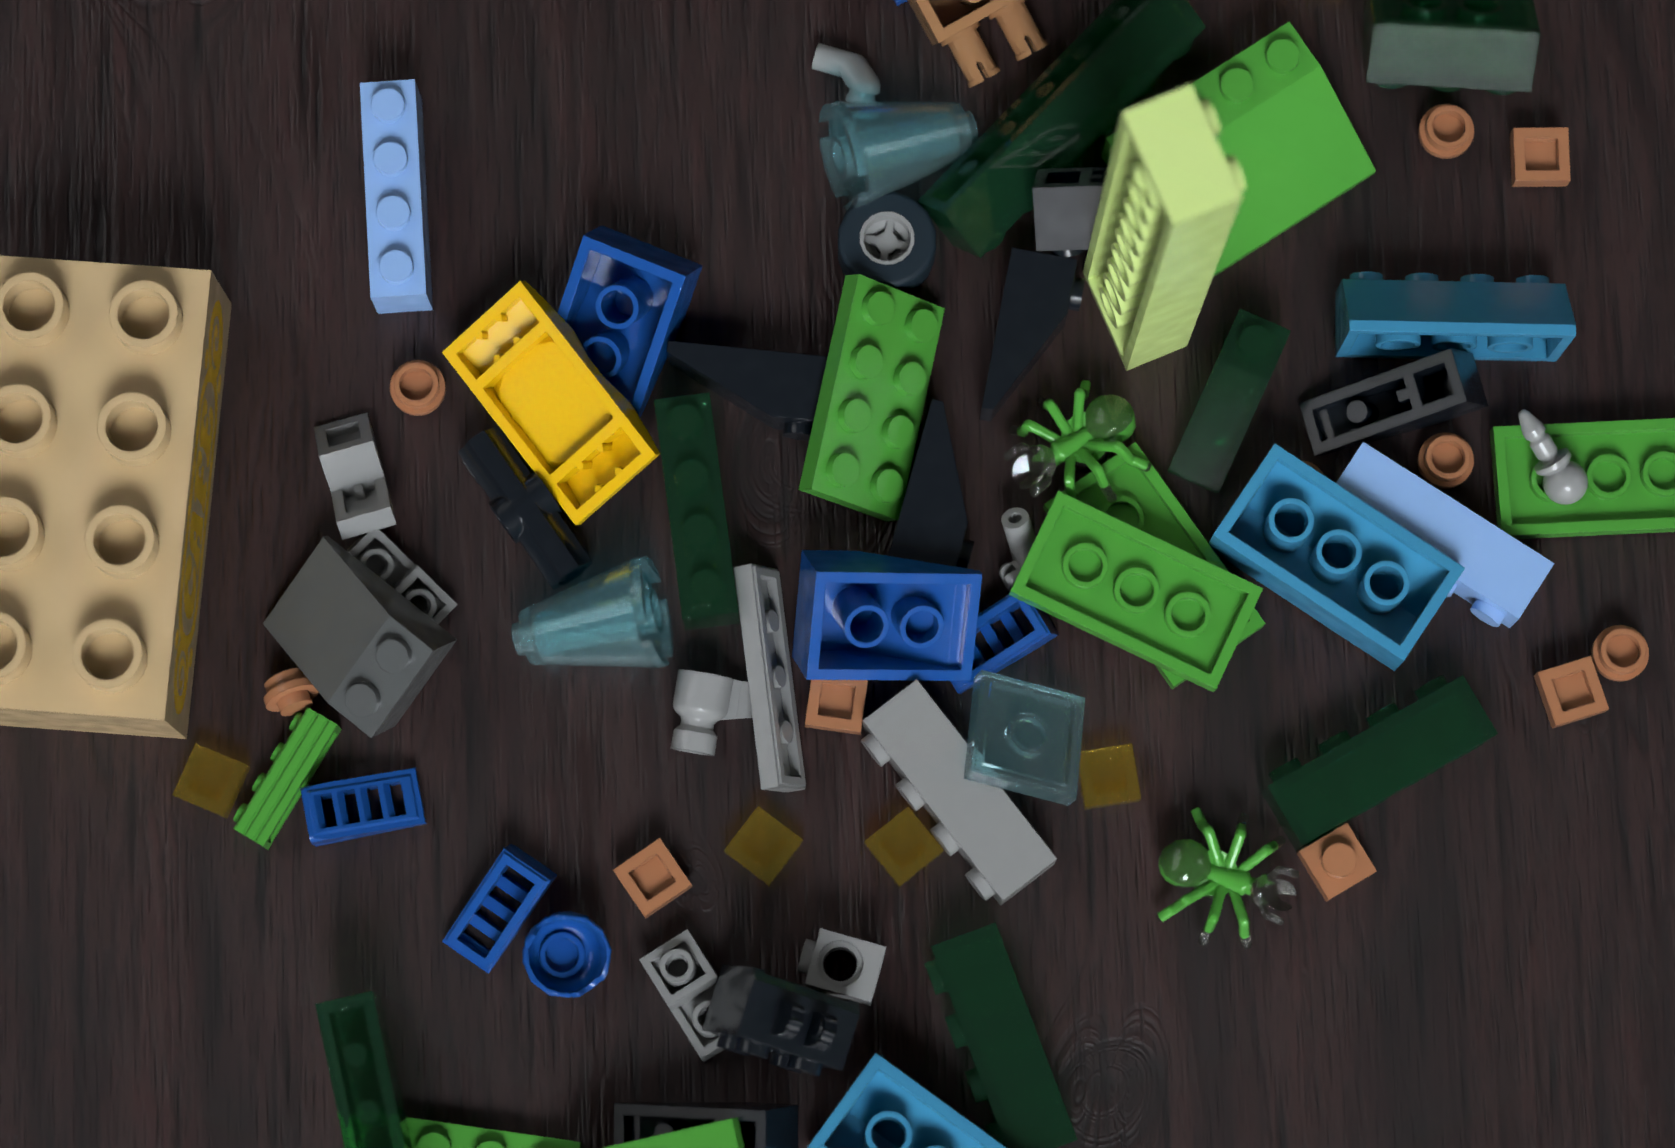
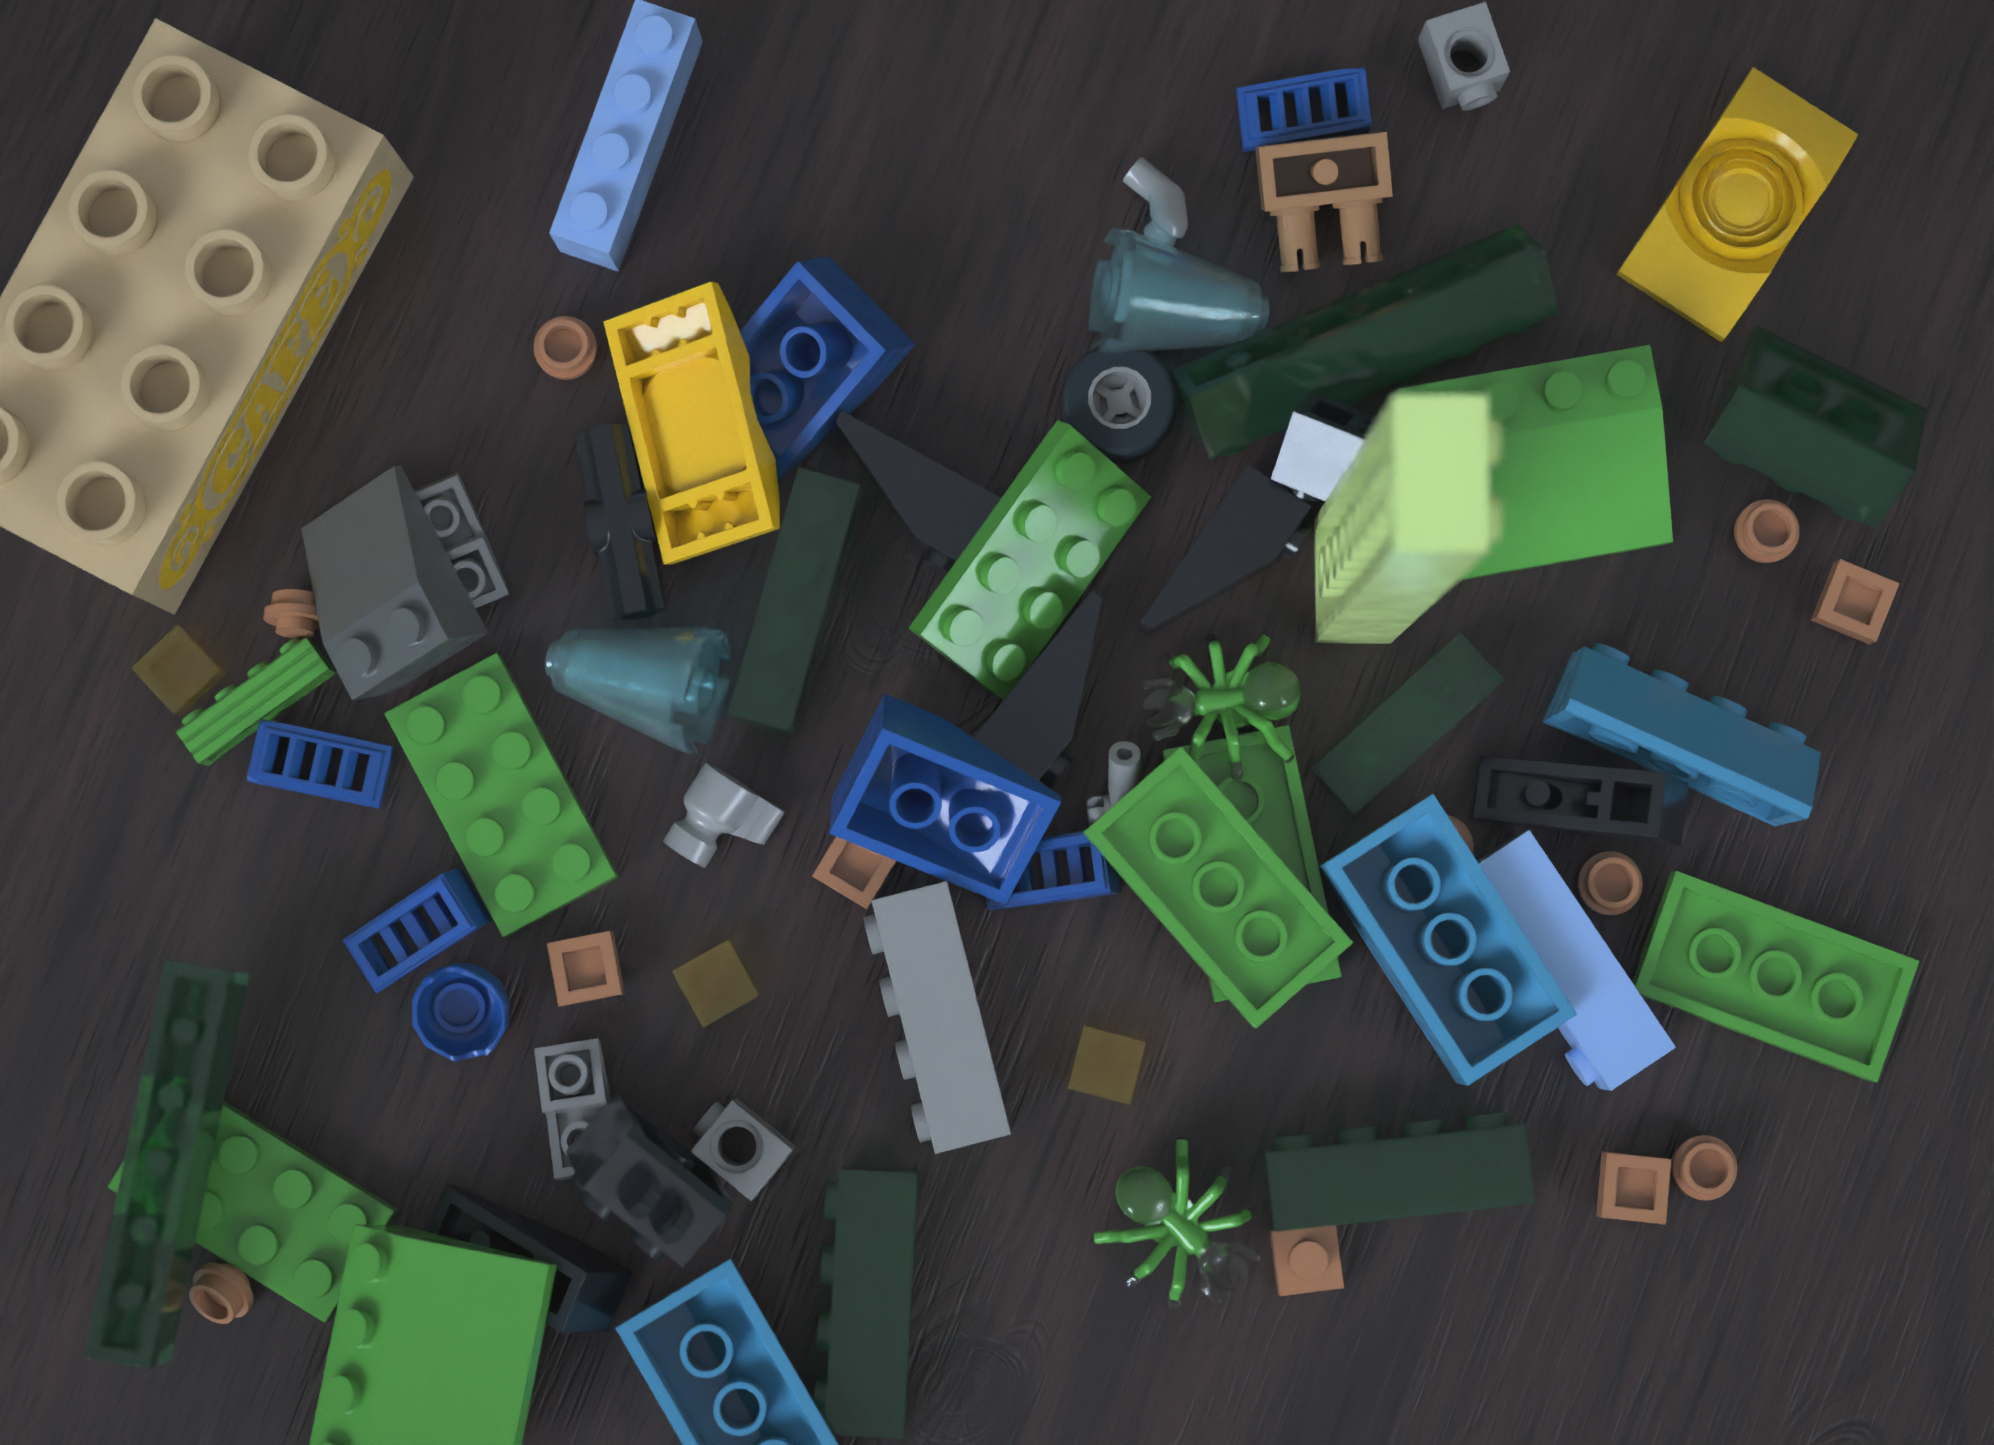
camera: 25 degrees right, 5 degrees up
(355, 476) = (461, 414): light grey slope -> none
(521, 769) = (501, 795): none -> bright green plate
(770, 678) = (796, 811): light grey tile -> none
(903, 847) = (861, 1047): clear yellow tile -> none
(1024, 738) = (1034, 990): clear light blue tile -> none
(1562, 479) = (1725, 959): light grey bar -> none

